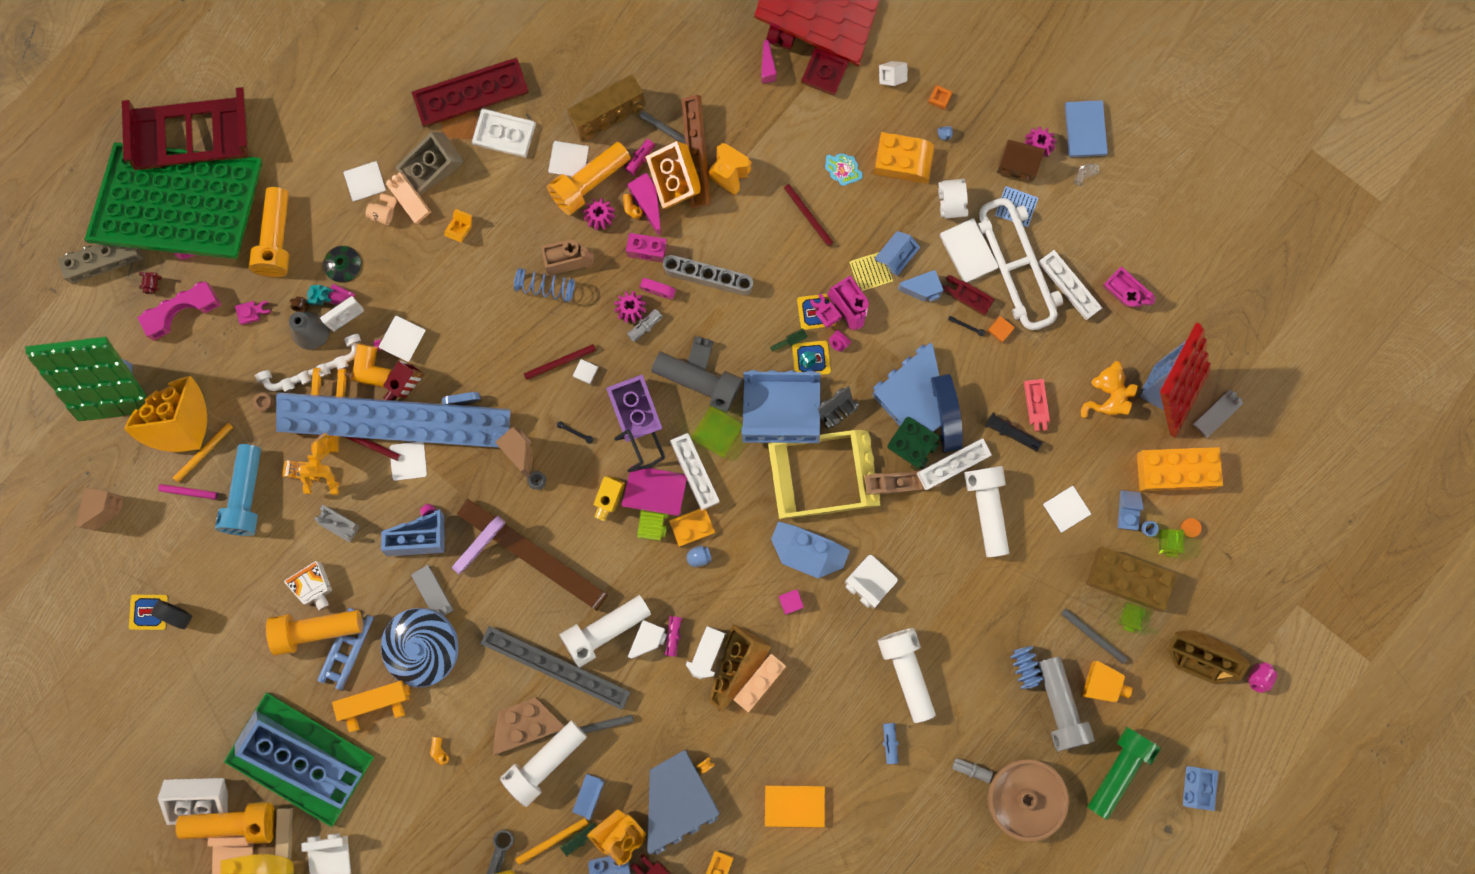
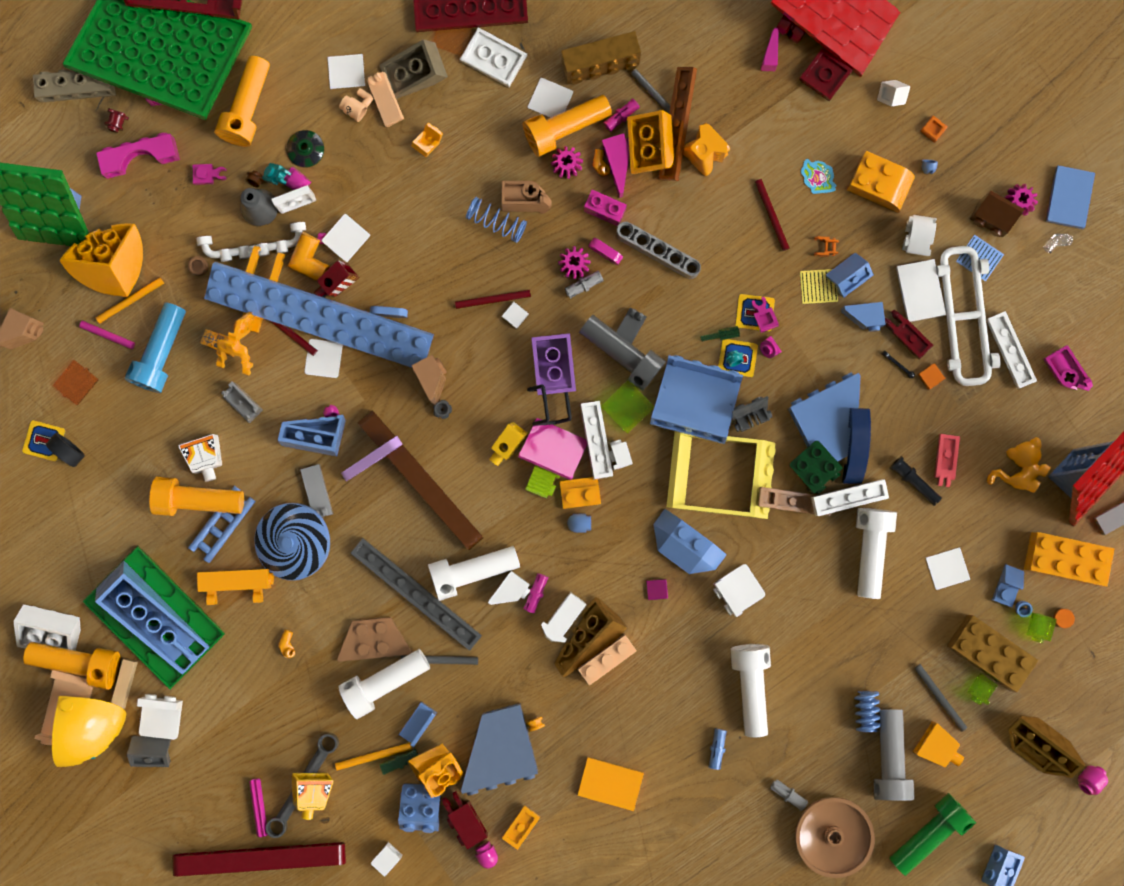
camera: 20 degrees right, 5 degrees up
(167, 546) = (75, 382): none -> clear orange piece
(588, 439) = (502, 382): black hinge -> none
(721, 480) = (620, 454): none -> white brick
(846, 297) = (786, 307): dark pink piece -> none
(866, 225) = (827, 240): none -> orange piece

